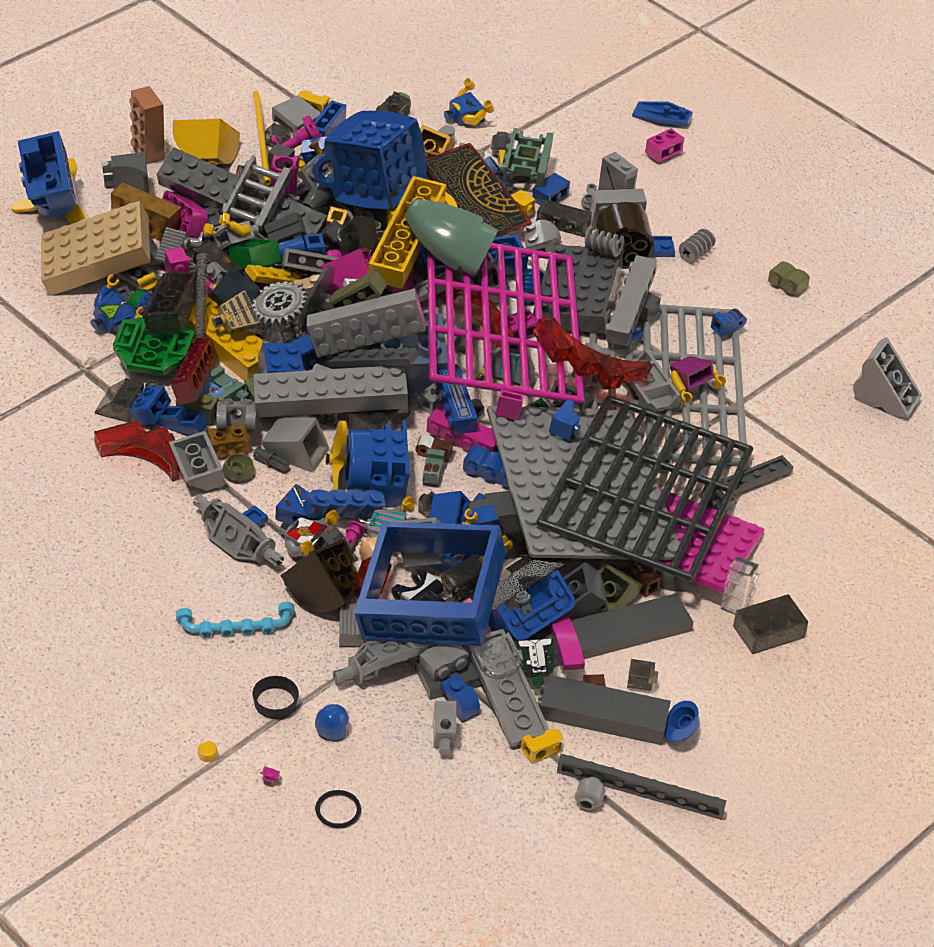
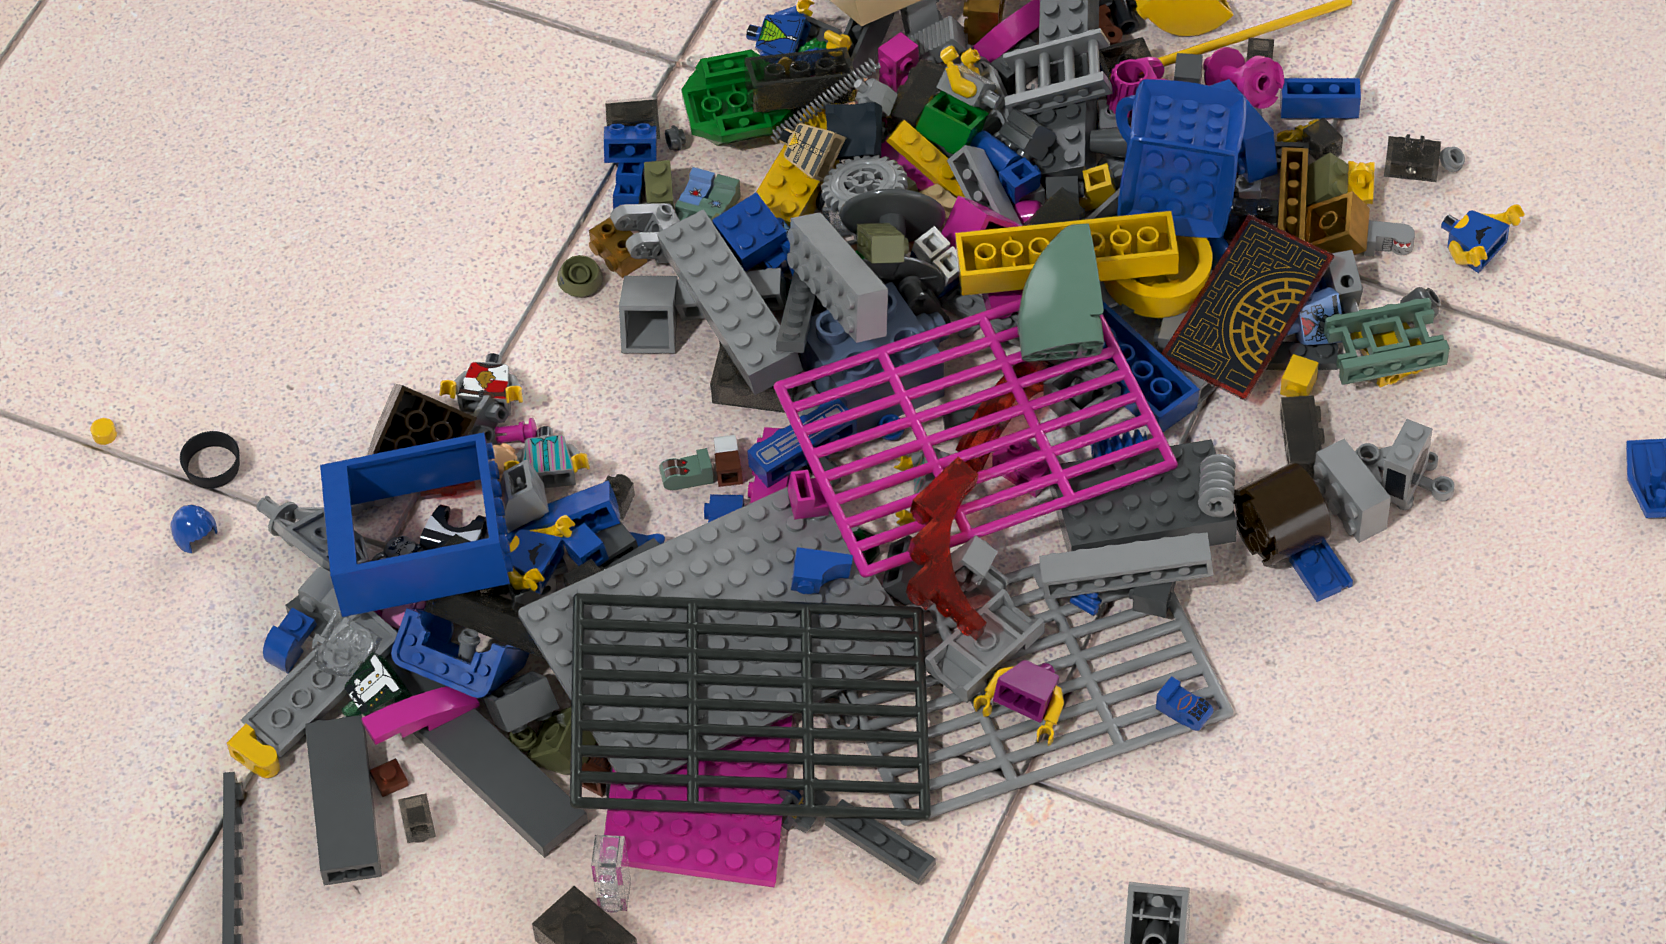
camera: 75 degrees right, 10 degrees up
(134, 441) = (569, 173): clear red arch -> none
(194, 371) = (706, 162): dark red brick -> none
(198, 461) = (553, 230): light grey slope -> none
(236, 532) = (442, 337): light grey plate -> none
(247, 626) = (312, 388): medium azure bar -> none
(256, 515) = (498, 324): blue plate -> none
(270, 774) = (89, 500): dark pink plate -> none
(271, 459) = (611, 302): dark grey axle -> none
(291, 506) = (538, 361): blue torso -> none
(293, 111) = (1319, 55): light grey panel -> none
(316, 101) = (1365, 64): yellow leg -> none
(338, 825) = (67, 566): black tyre -> none
(346, 504) = (547, 396): blue brick -> none
(371, 461) = (637, 399): blue brick -> none
(444, 726) = (228, 639): light grey torso -> none
(541, 235) = (1245, 425): light grey slope -> none
(554, 189) = (1355, 402): blue brick -> none
(590, 793) = (192, 827): light grey head -> none
(664, 145) = (1560, 501): dark pink brick -> none
(682, 721) = (352, 891): blue piece -> none
(696, 245) = (1343, 616): light grey piece -> none
(789, 278) = (1345, 756): olive brick -> none

